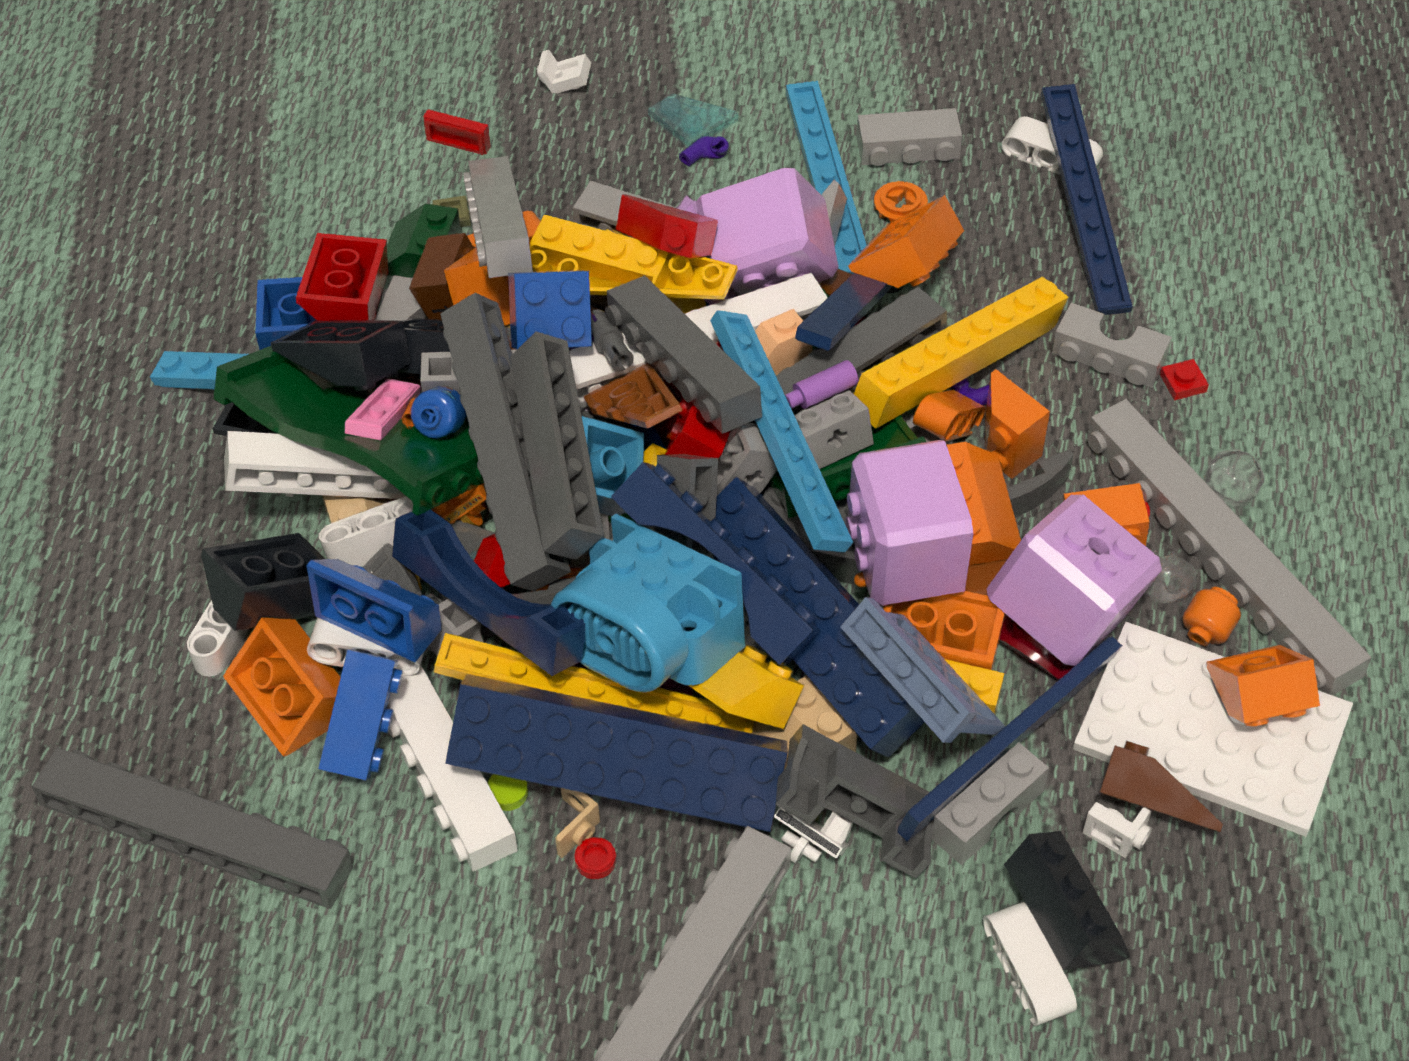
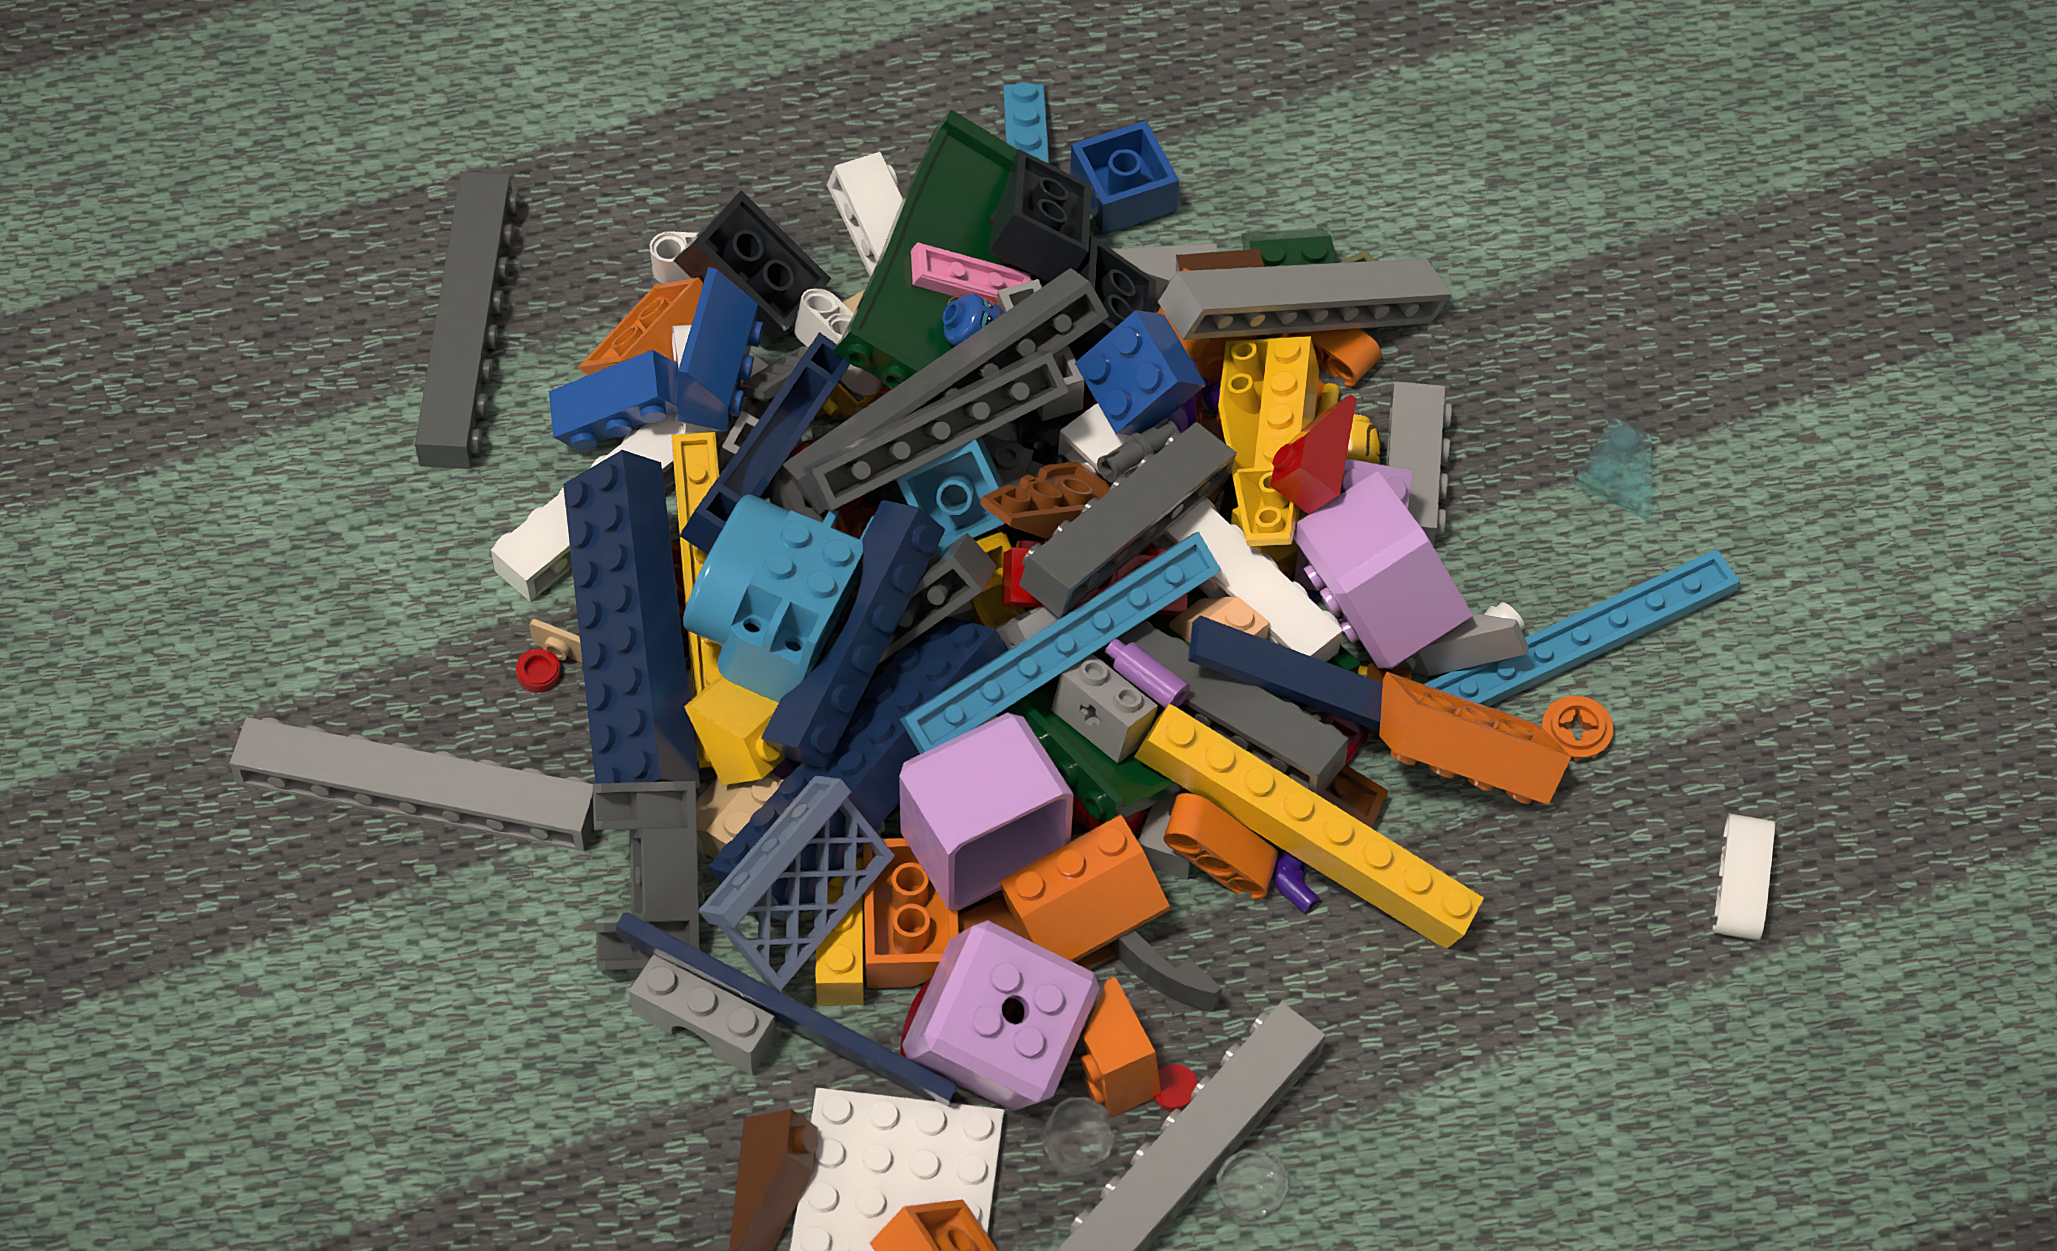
camera: 70 degrees right, 5 degrees up
(344, 277) = (1168, 197): red slope -> none
(456, 132) = (1479, 236): red tile -> none
(564, 74) = (1628, 309): white bracket -> none
(705, 147) = (1575, 494): dark purple arm -> none
(829, 837) = (609, 861): white hips -> none
(909, 136) = (1688, 707): light grey brick -> none
(1013, 425) = (1229, 914): orange slope -> none
(1031, 962) = (518, 1096): white beam -> none
(1065, 902) = (595, 1117): black slope -> none
(1086, 200) = (1657, 926): dark blue tile -> none
(1115, 831) = (710, 1150): white bracket -> none
(1134, 358) = (1420, 1047): light grey arch -> none
(1184, 379) = (1411, 1109): red plate -> none
(1211, 616) = (1037, 1198): orange head -> none

